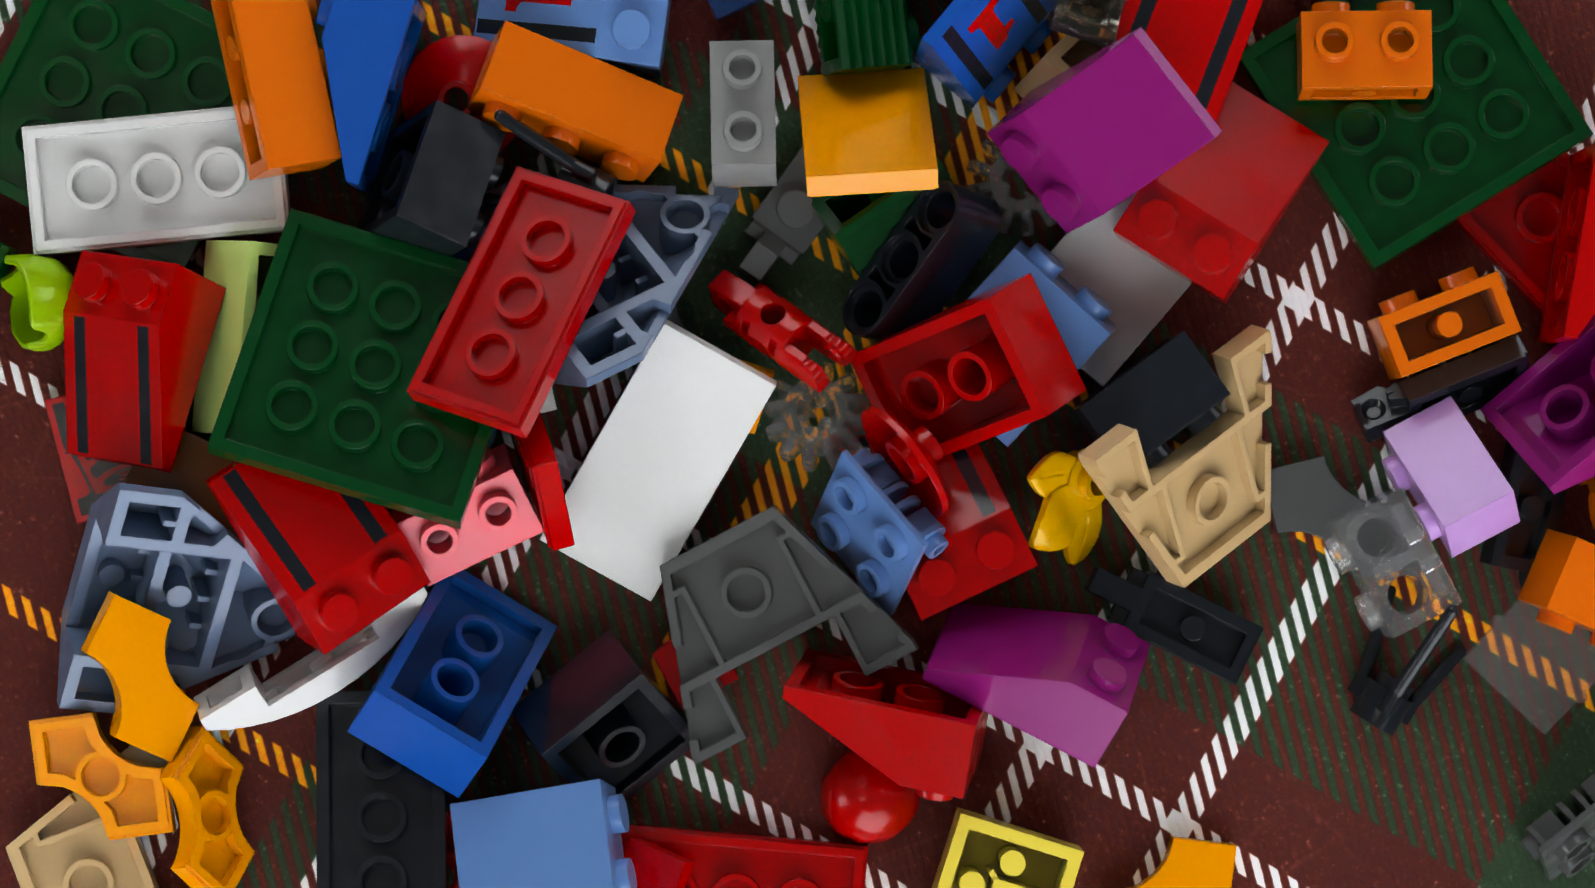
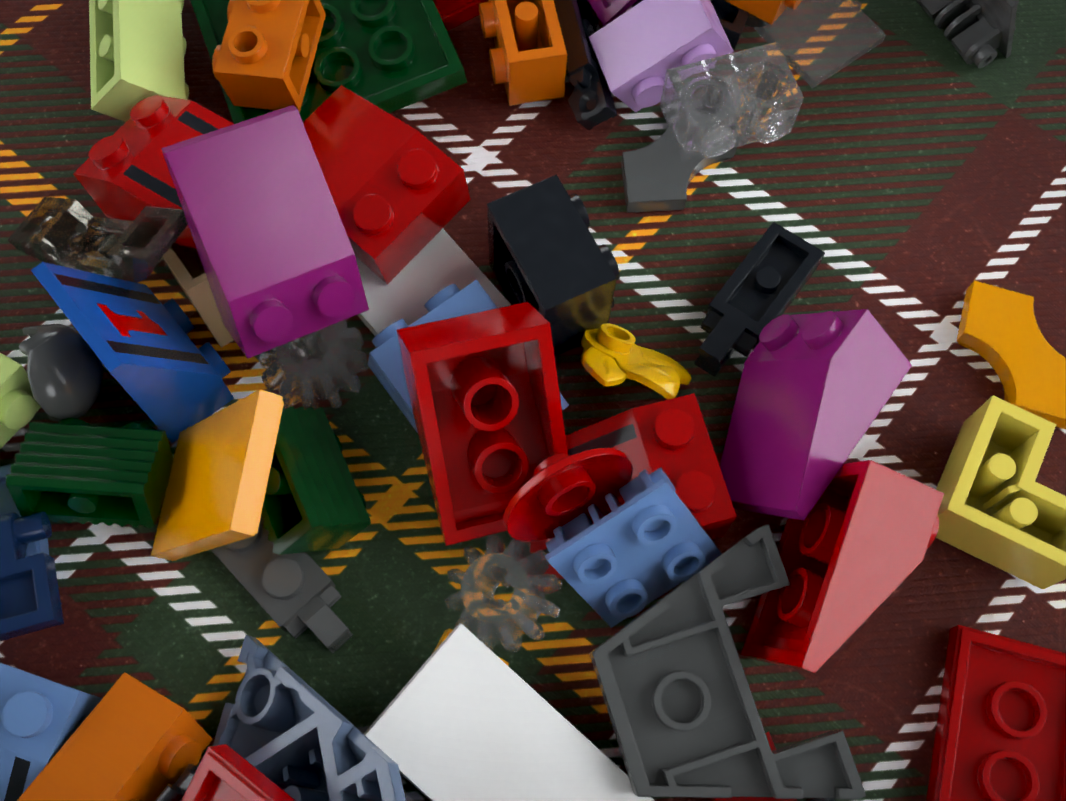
camera: 85 degrees left, 20 degrees down
(742, 113) = (164, 611): light grey brick -> none
(778, 328) = (402, 614): red hinge -> none
(865, 802) = (912, 622): red hair -> none
(922, 261) = (337, 442): black beam -> none
(1209, 488) = (646, 240): tan wing -> none
(1391, 699) = (847, 138): black plant -> none

